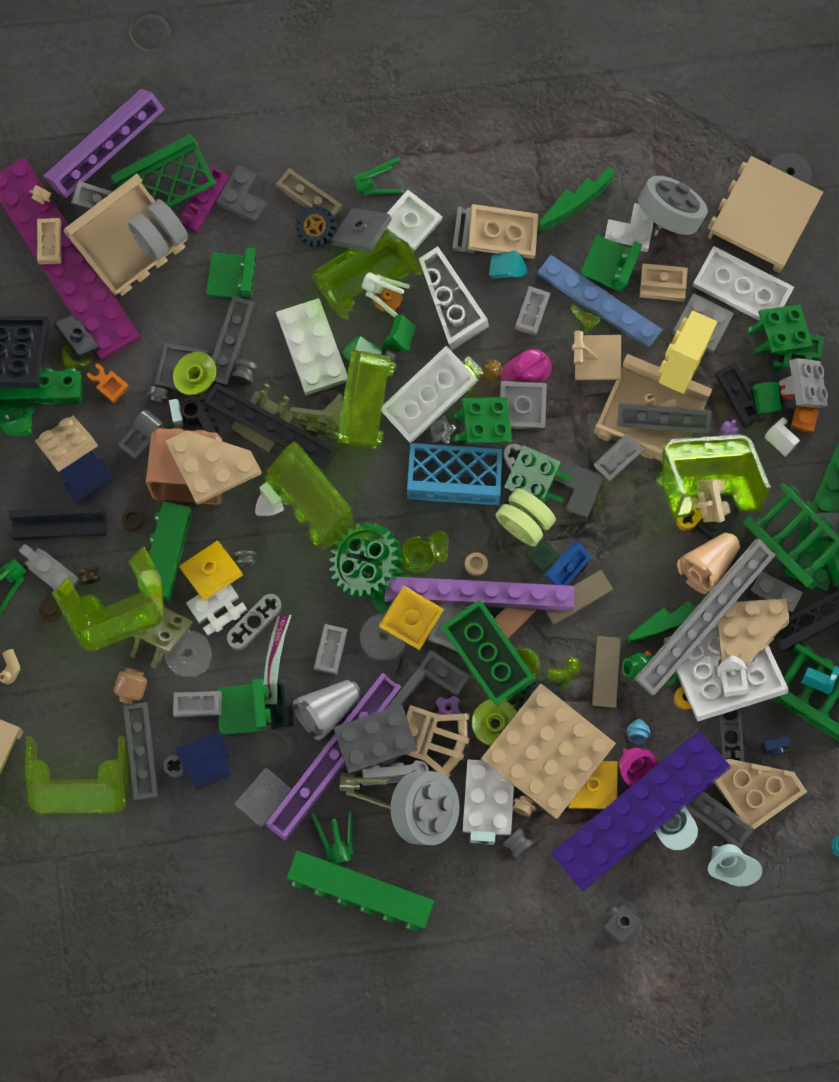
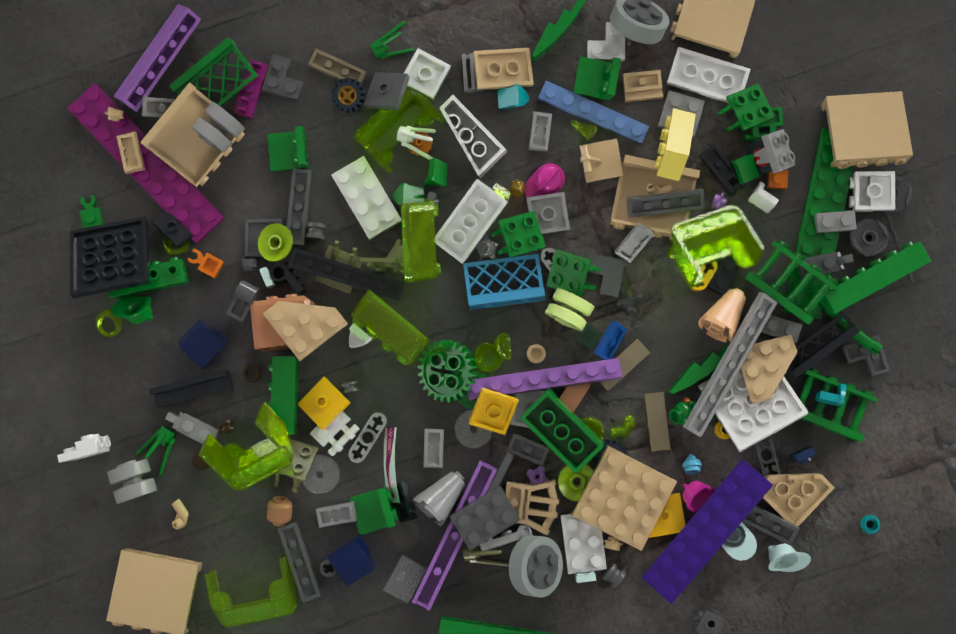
camera: 10 degrees left, 10 degrees up
(65, 443) = (182, 323): tan plate -> none
(339, 851) = (473, 610): green plant -> none
(710, 501) = (716, 266): tan hips -> none
(733, 676) = (763, 411): white tile -> none

